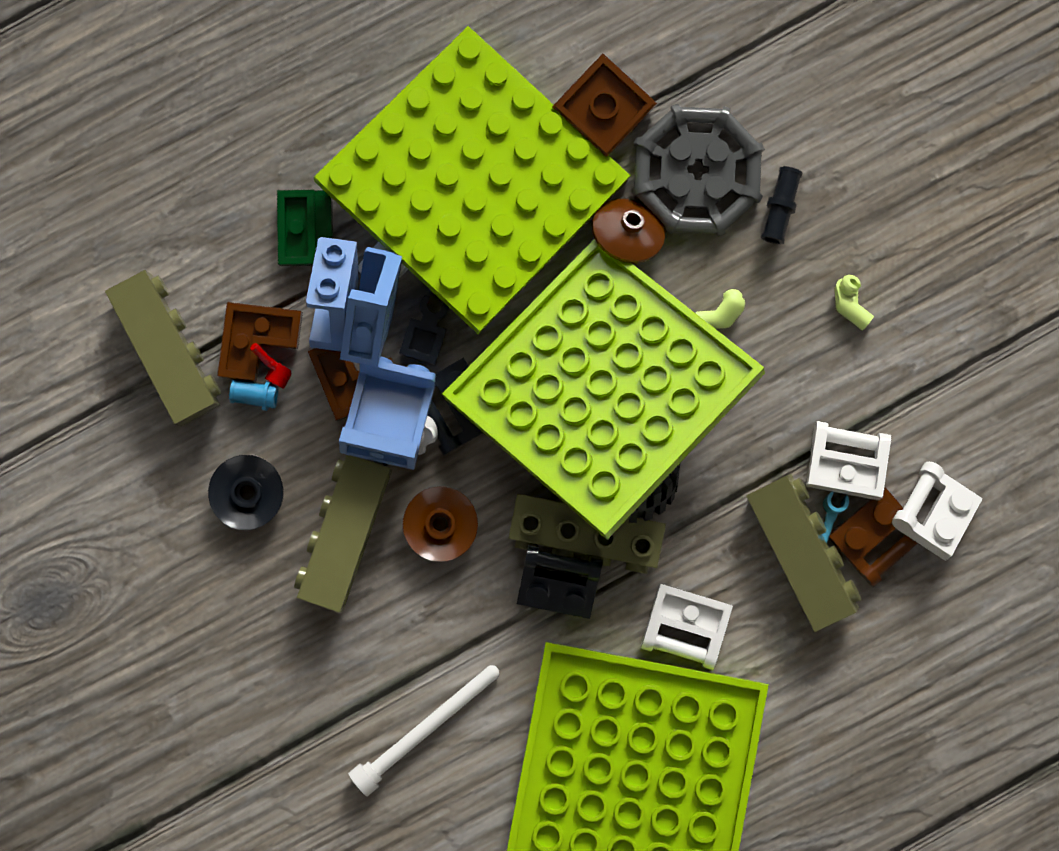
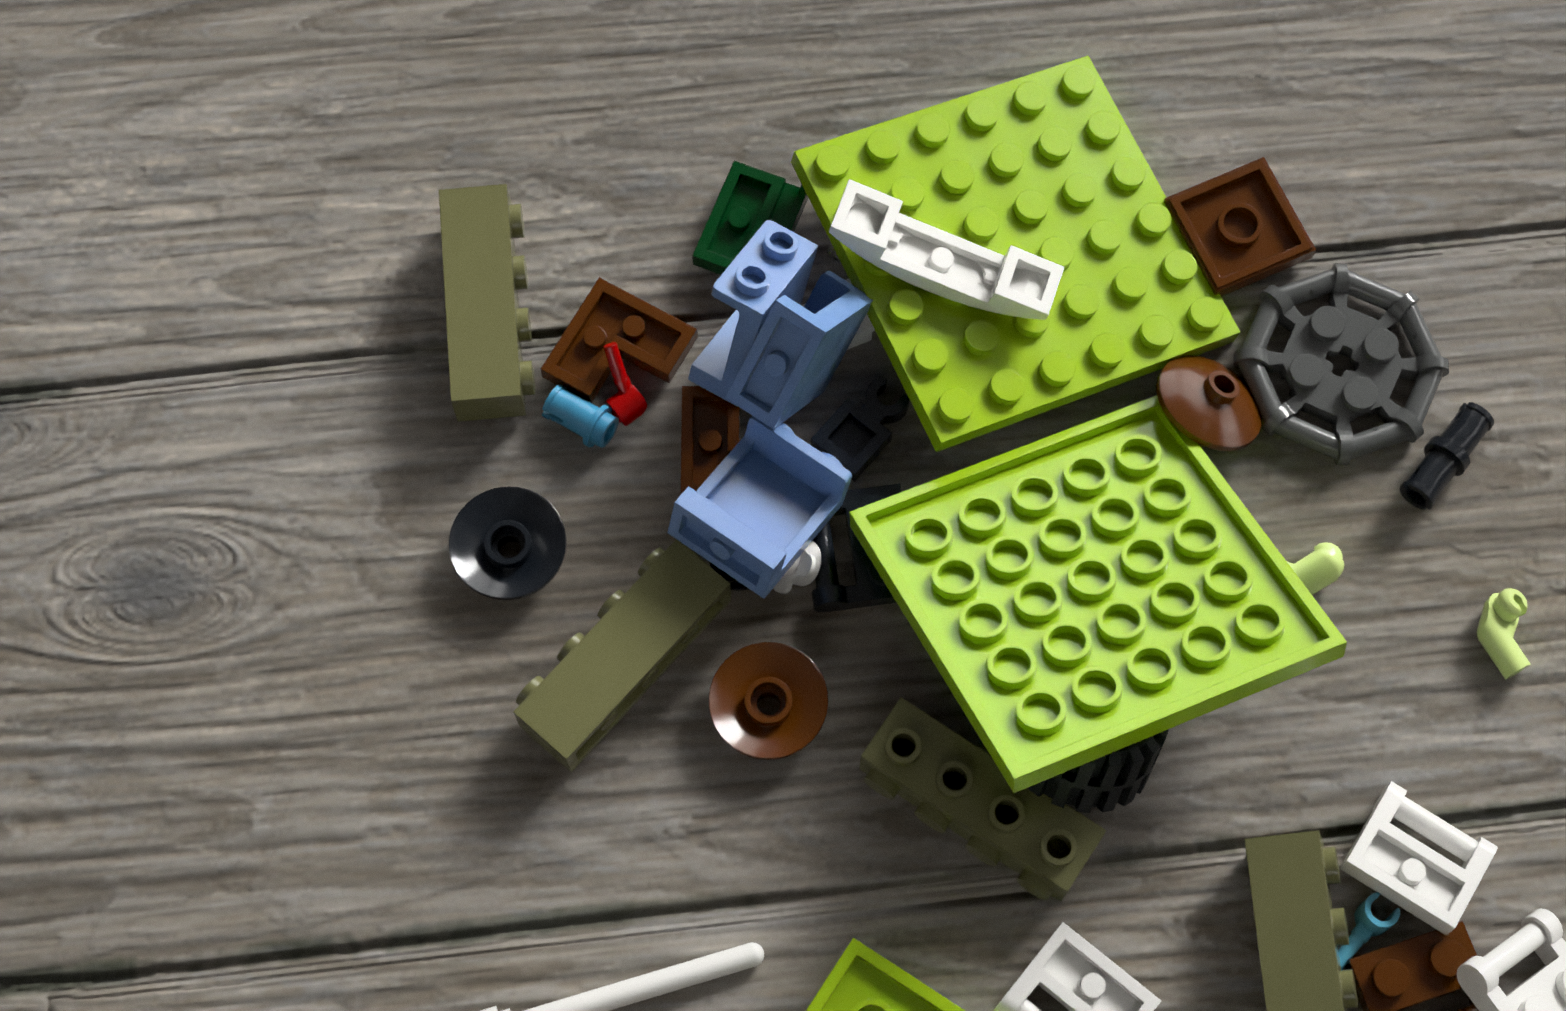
camera: 25 degrees right, 15 degrees down
(435, 215) = (942, 262): none -> white slope
(558, 590) = (901, 868): black plate -> none

